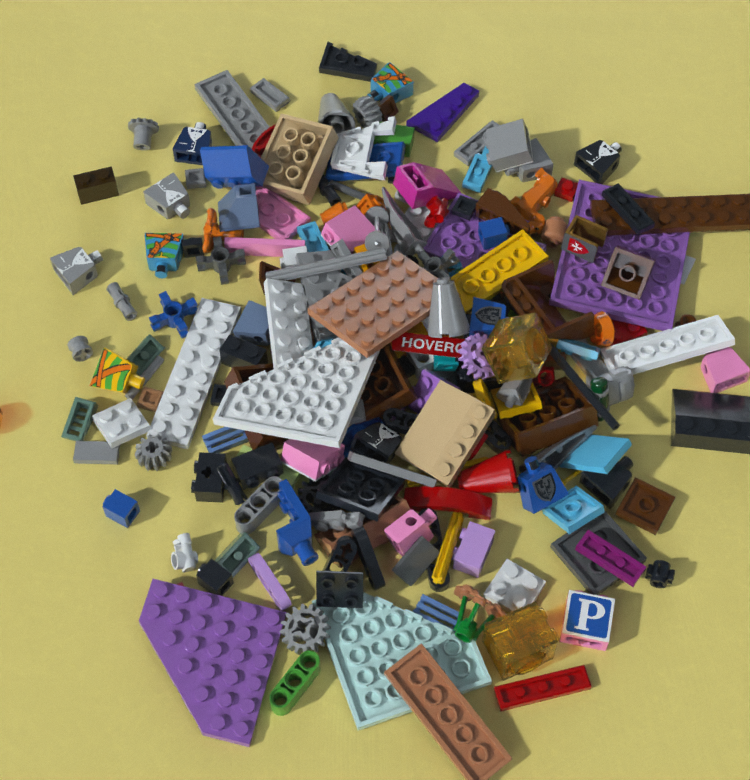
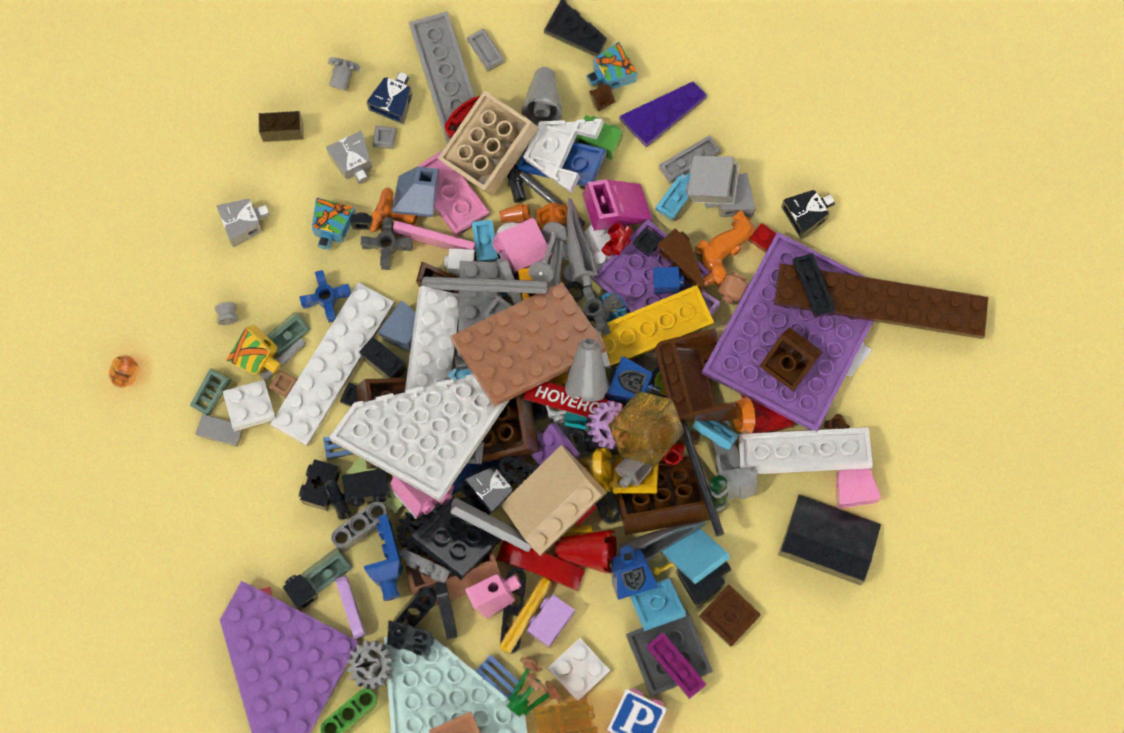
camera: 15 degrees right, 15 degrees up
(120, 508) = (228, 497): blue brick -> none
(121, 301) = (278, 267): light grey pin -> none
(145, 454) = (267, 439): light grey gear -> none
(184, 557) = (277, 563): white plate -> none
(233, 166) = (421, 143): blue slope -> none
(367, 111) = (579, 99): light grey gear -> none
(415, 561) = (491, 621): dark grey slope -> none
(584, 238) = (764, 302): piece -> none
(660, 574) = (720, 691): black gear -> none

